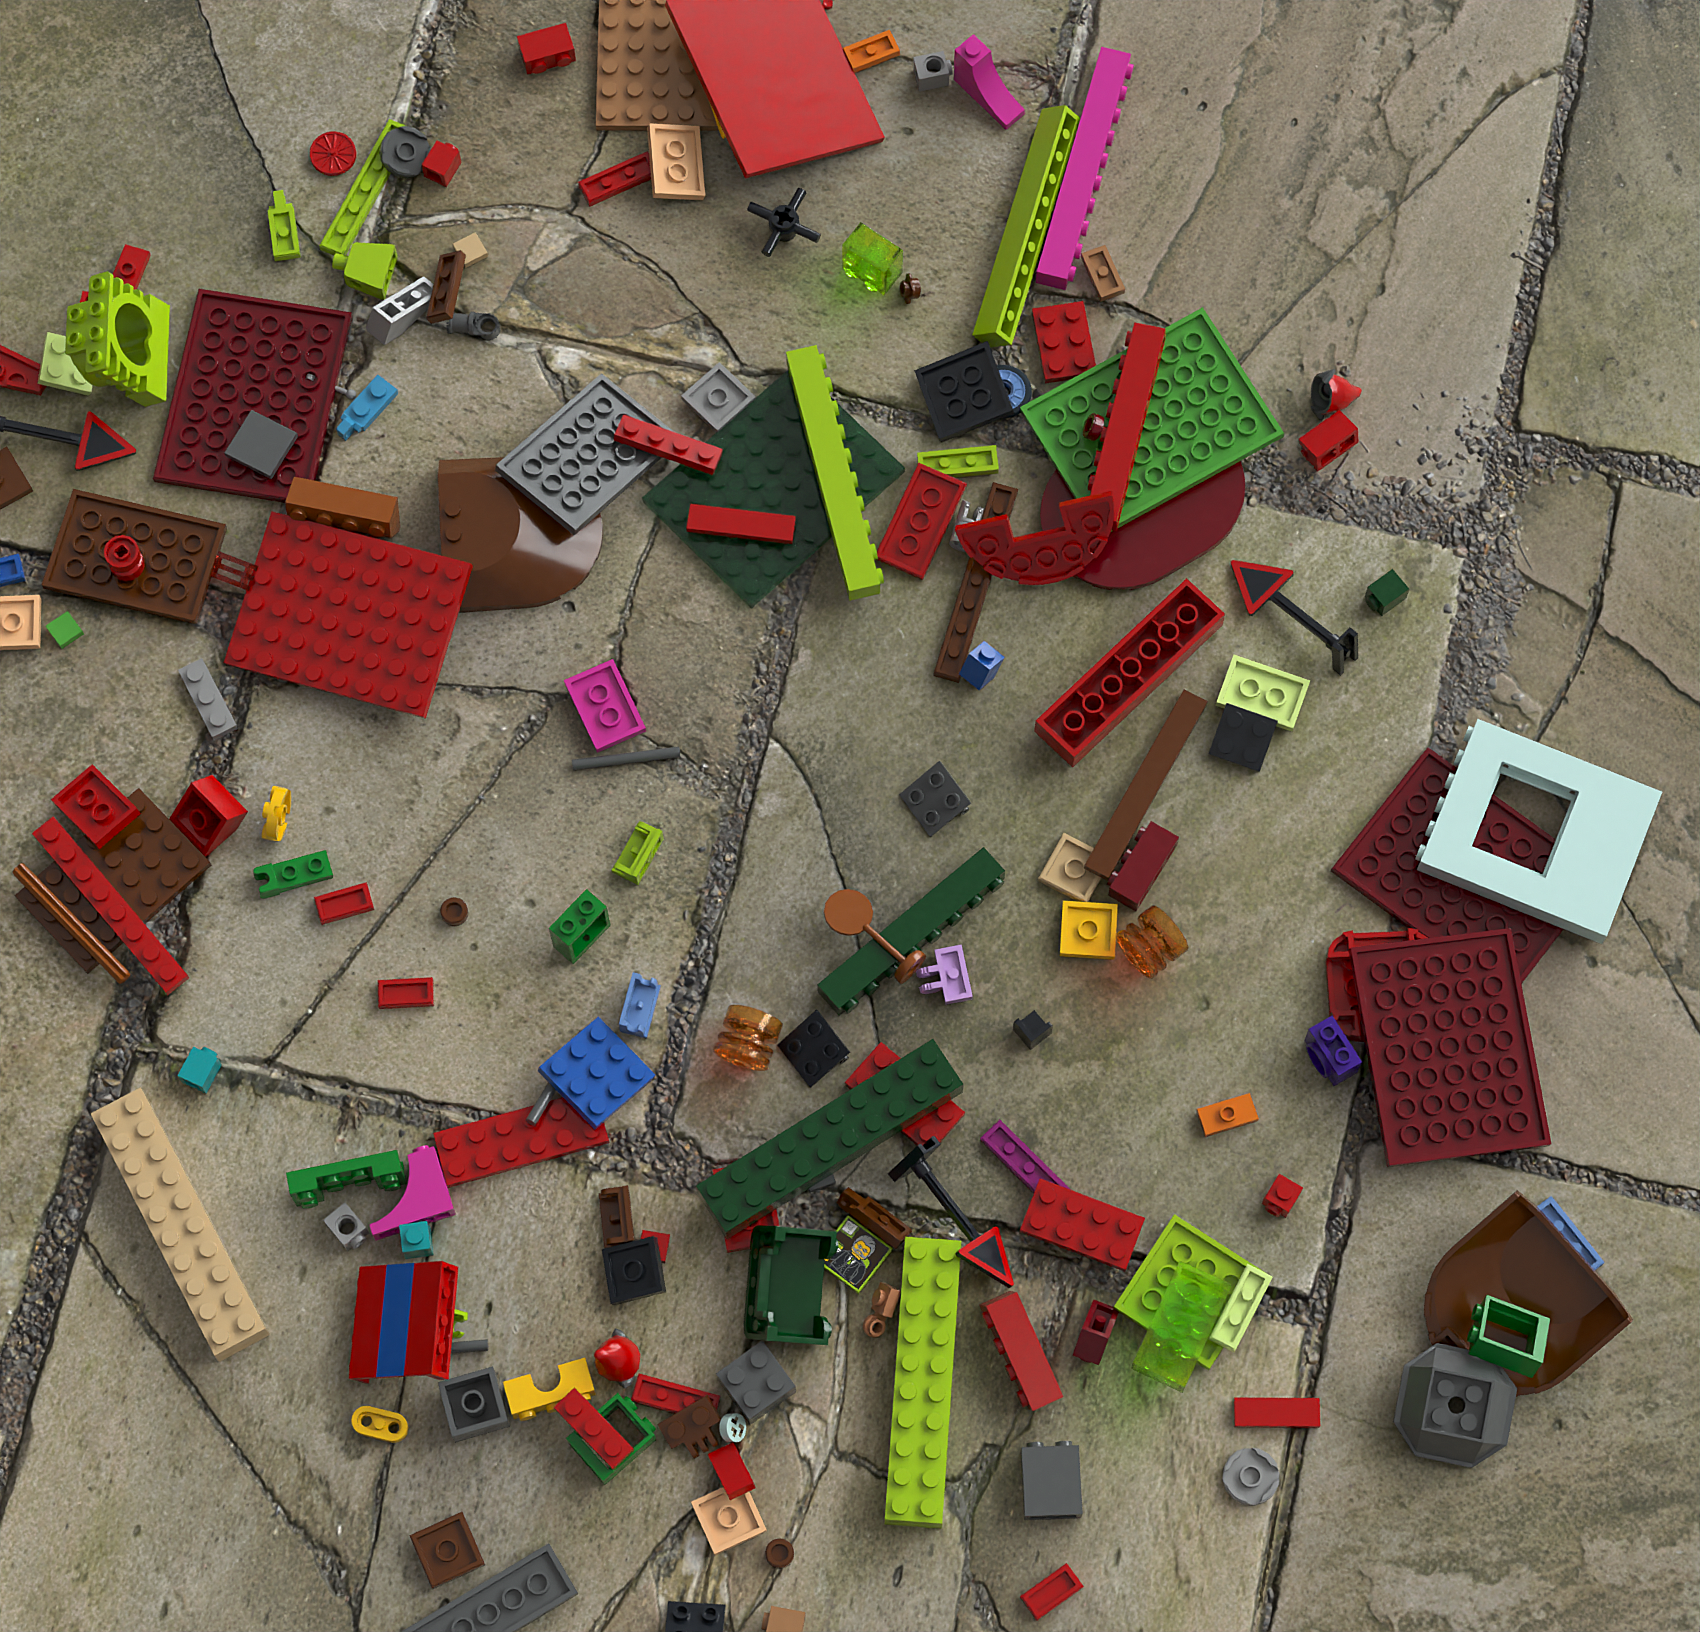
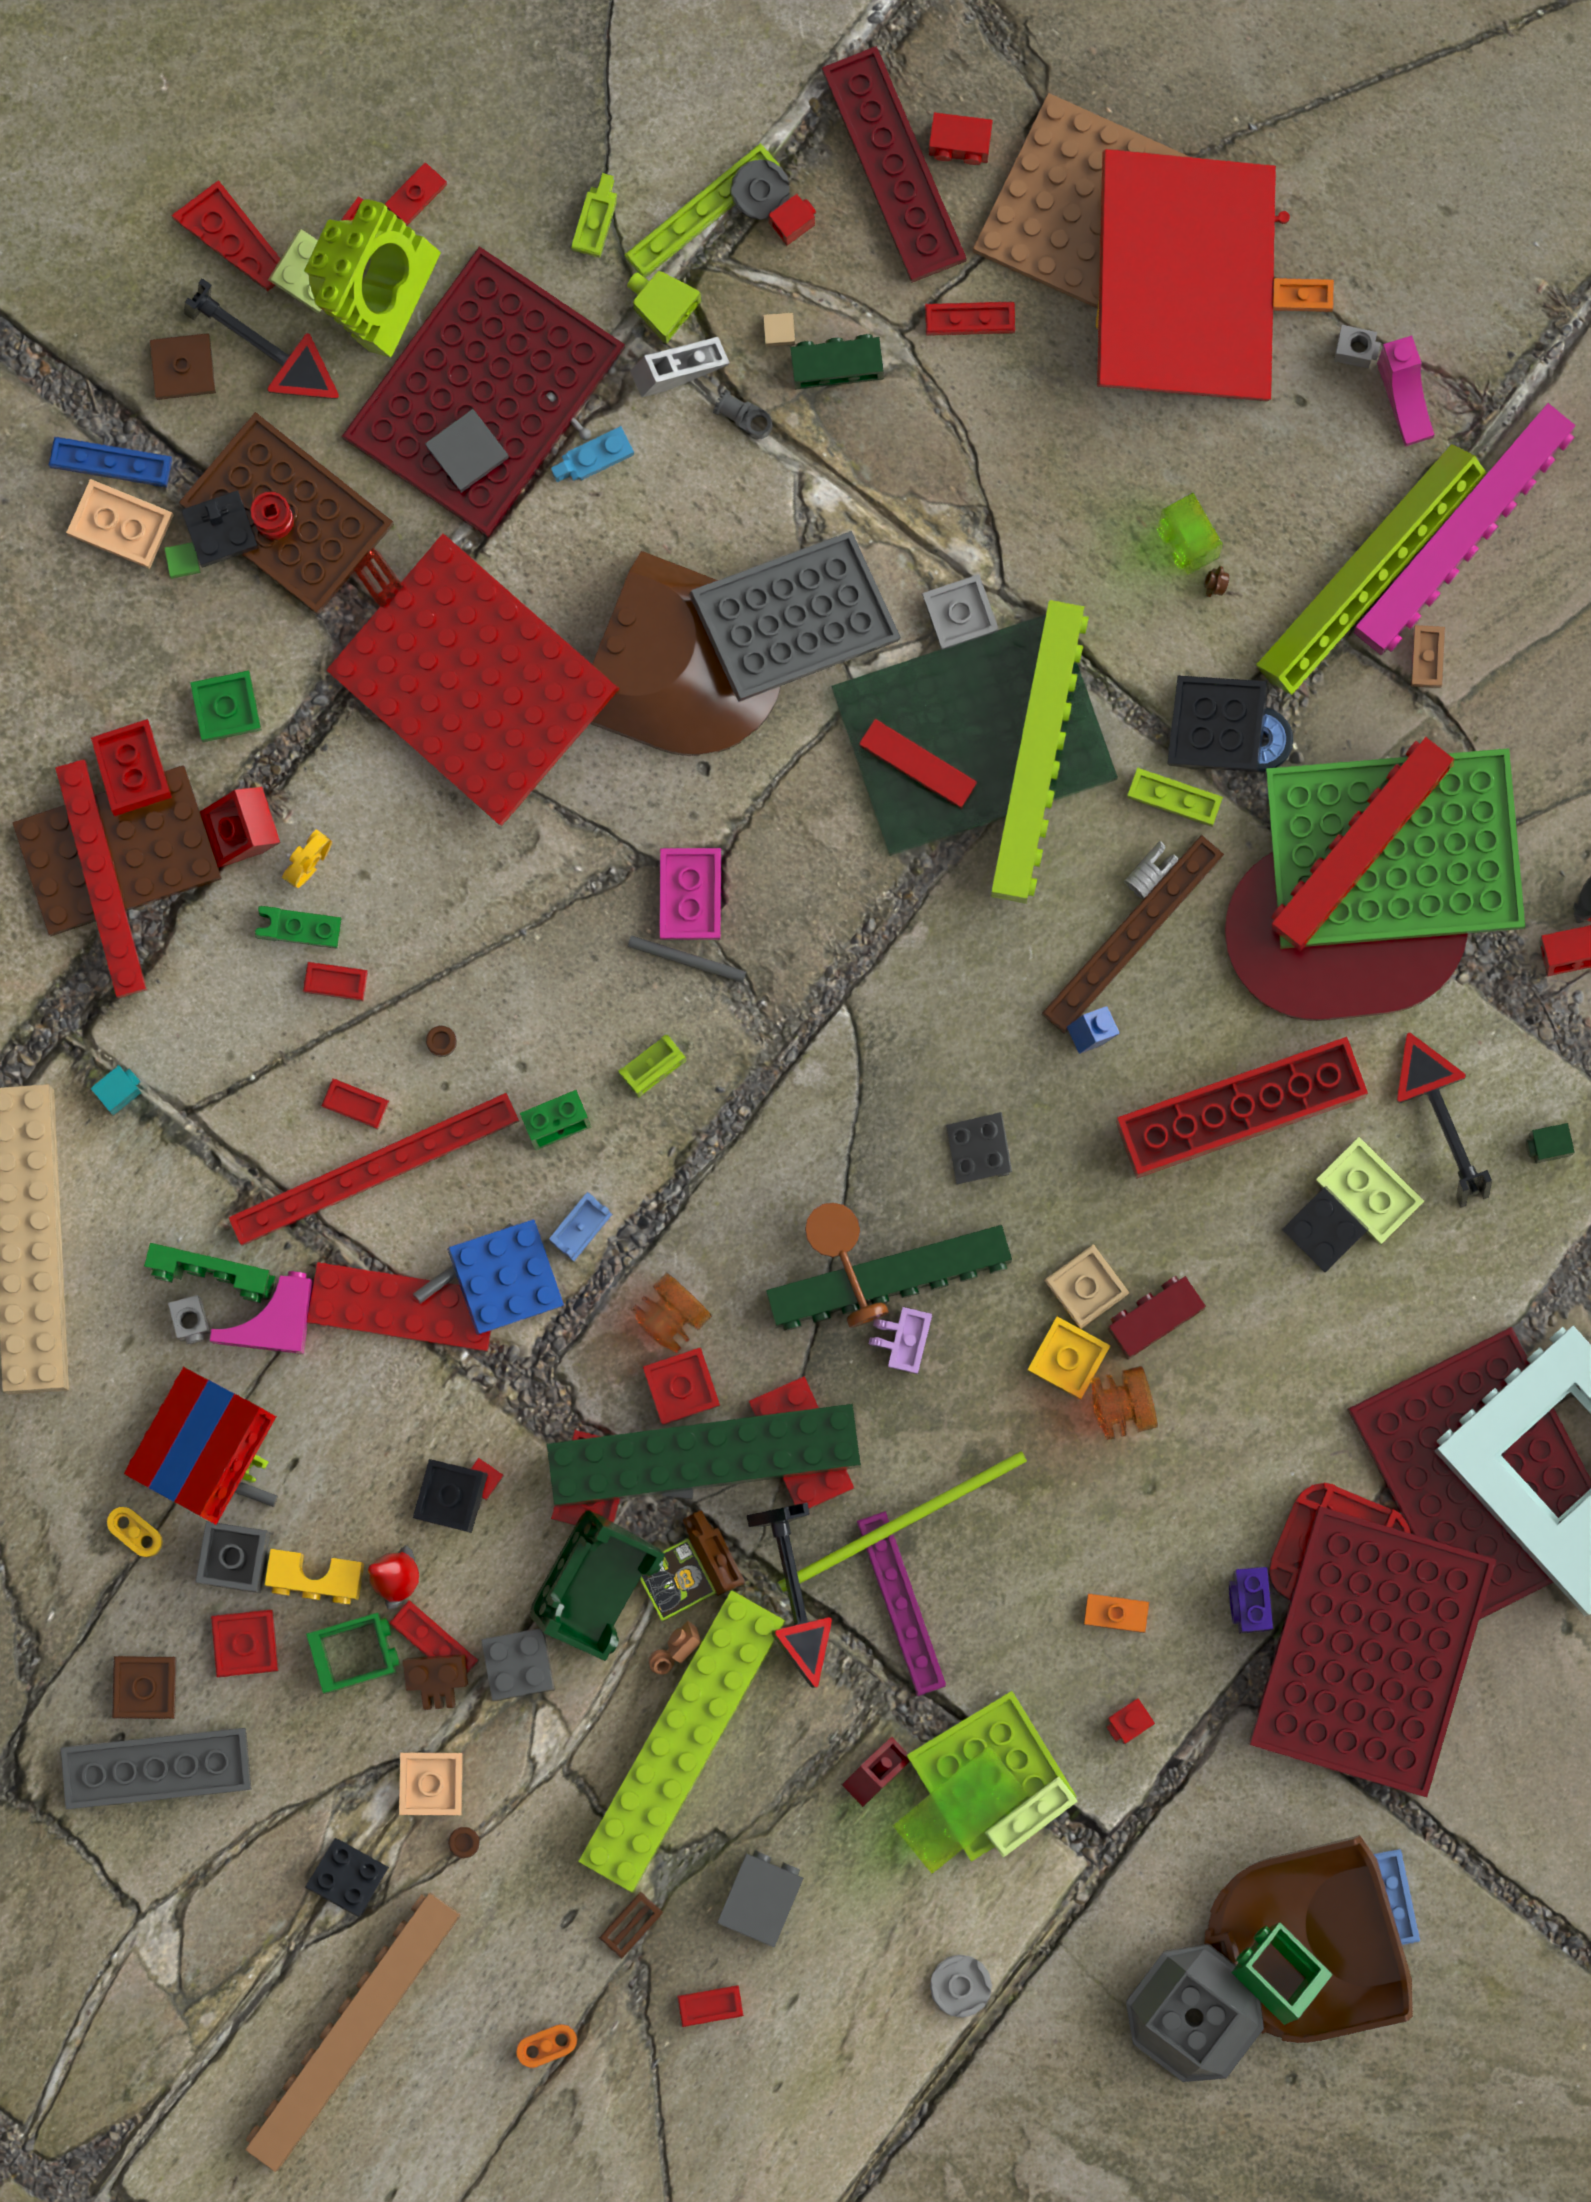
camera: 30 degrees right, 10 degrees up
(71, 923) = (54, 880): dark orange axle -> none
(85, 589) = (219, 529): none -> black hinge
(153, 726) = (225, 706): none -> green plate
(208, 699) = (294, 701): light grey plate -> none
(332, 153) = (685, 155): red wheel -> none
(343, 507) = (516, 564): dark orange slope -> none
(416, 1240) = (251, 1364): teal brick -> none
(445, 1038) = (373, 1169): none -> red plate
(446, 287) = (733, 362): reddish brown tile -> none
(503, 90) = (894, 164): none -> dark red plate
(516, 1474) = (244, 1643): none -> red tile
(528, 253) = (837, 362): none -> dark green brick
(593, 1428) = (336, 1638): red plate -> none
(616, 1216) = (459, 1433): reddish brown hinge -> none
(668, 444) = (882, 643): red plate -> none
(676, 161) = (1037, 329): light nougat plate -> none
(731, 1471) = (453, 1741): red tile -> none
(732, 1427) = (475, 1698): light aqua tile -> none
(783, 1095) = (681, 1386): none -> red plate
(791, 223) = (1118, 460): black bar -> none
(814, 1048) = (734, 1352): black hinge -> none
(920, 521) = (1105, 843): red tile -> none
(946, 1578) = (648, 1905): none -> reddish brown tile
(1020, 1116) = (908, 1518): none -> lime piece
(1021, 1350) = (793, 1755): red wedge -> none
(1032, 1029) = (962, 1434): black panel -> none
(1042, 555) = (1213, 942): red plate -> none
(1063, 341) = (1350, 713): red plate -> none
(1082, 1224) = (915, 1658): red plate -> none
(1093, 426) = (1329, 828): dark red tile -> none
(1145, 785) = (1201, 1232): reddish brown tile -> none
(1276, 1412) = (1017, 1935): red tile -> none

